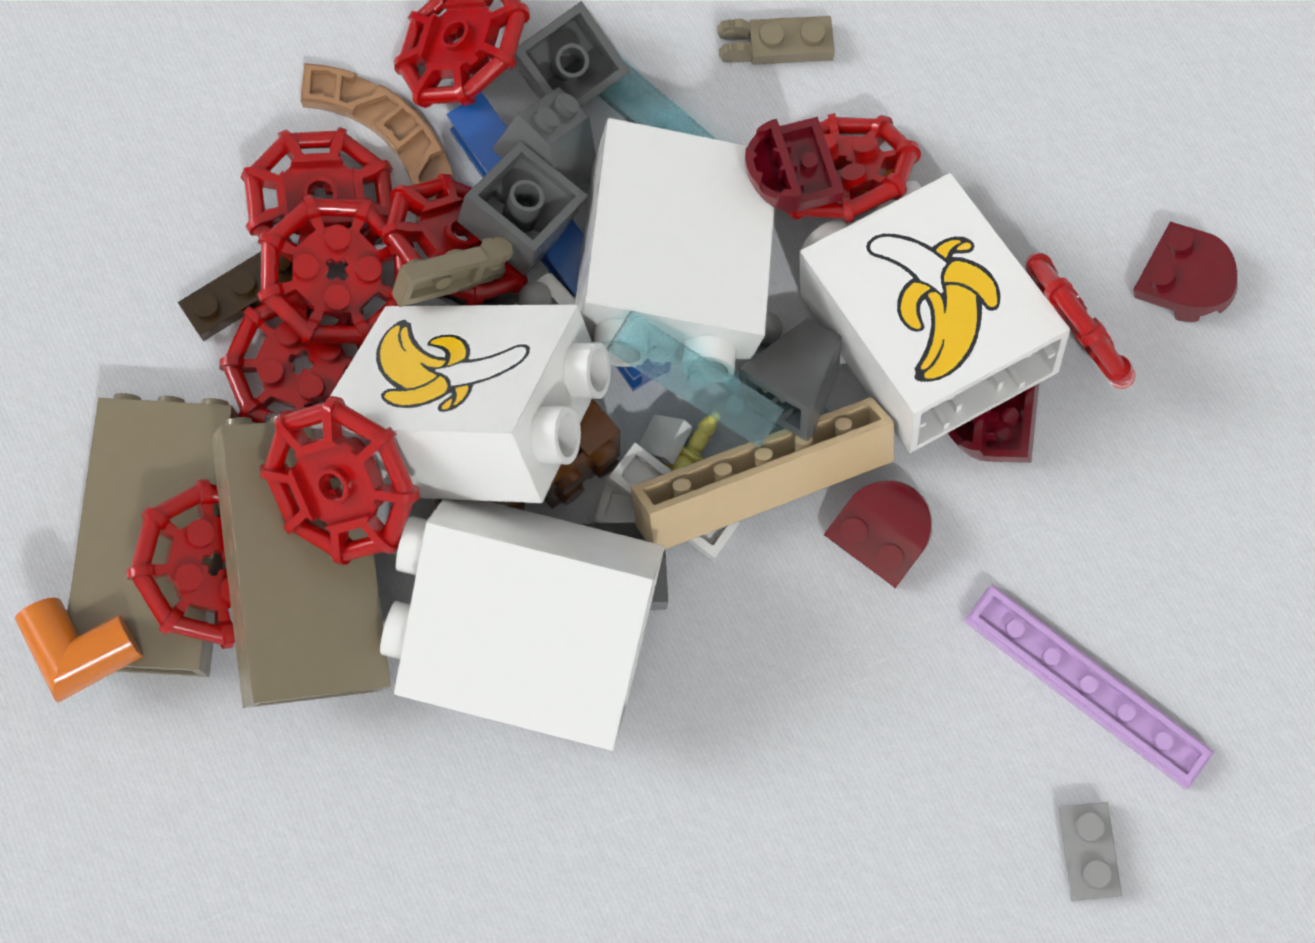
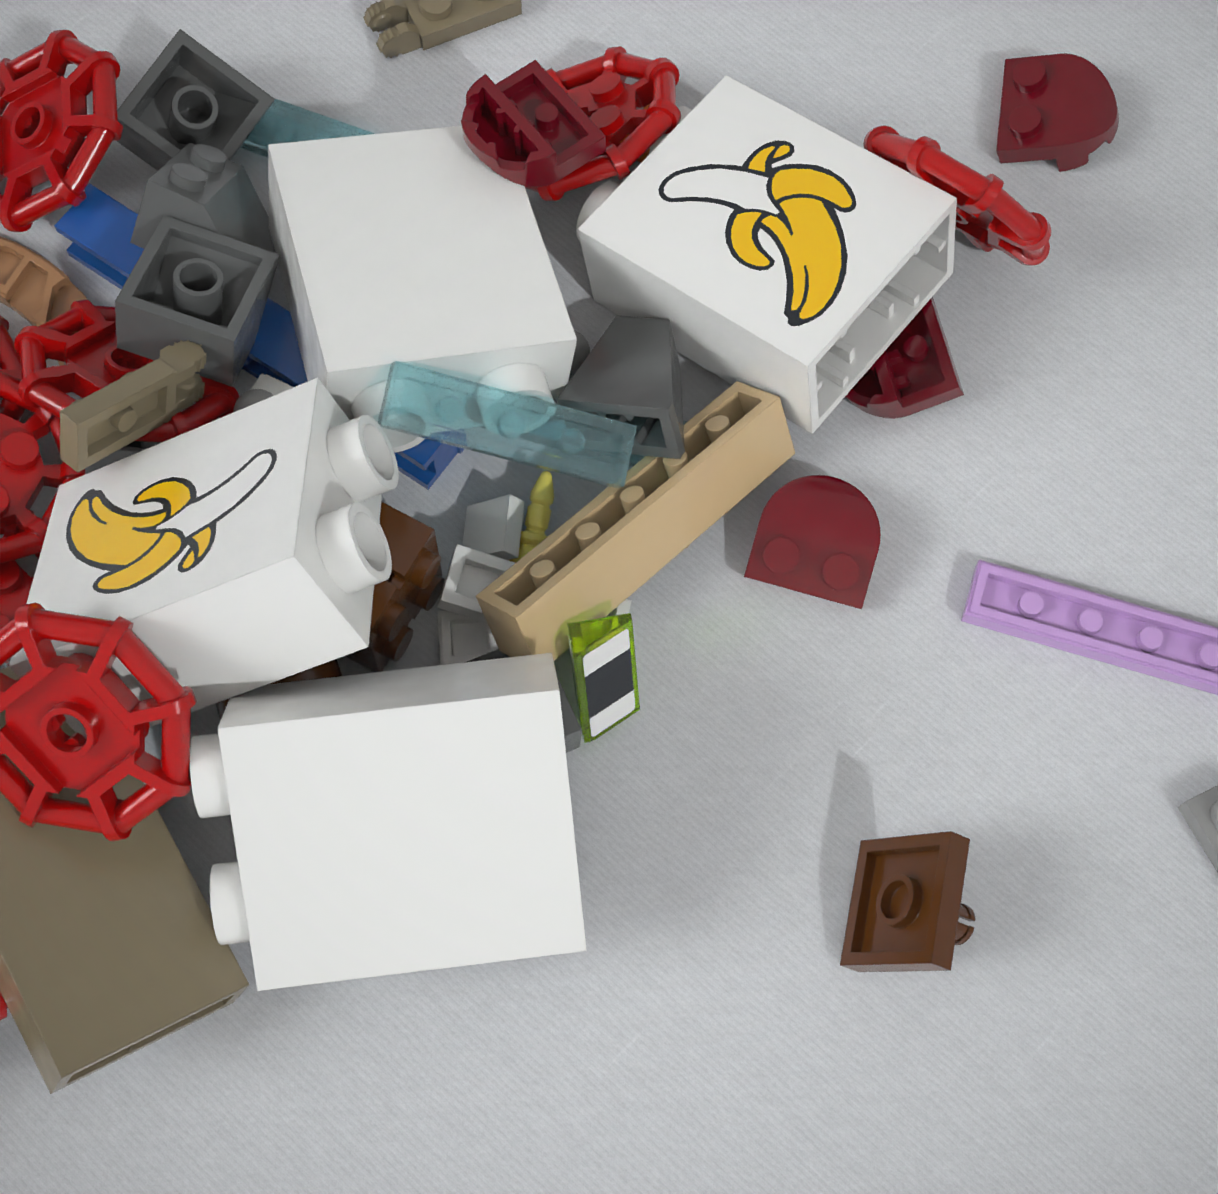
camera: 20 degrees left, 5 degrees down
(698, 568) = (603, 673): none -> slope
(840, 801) = (907, 904): none -> reddish brown tile

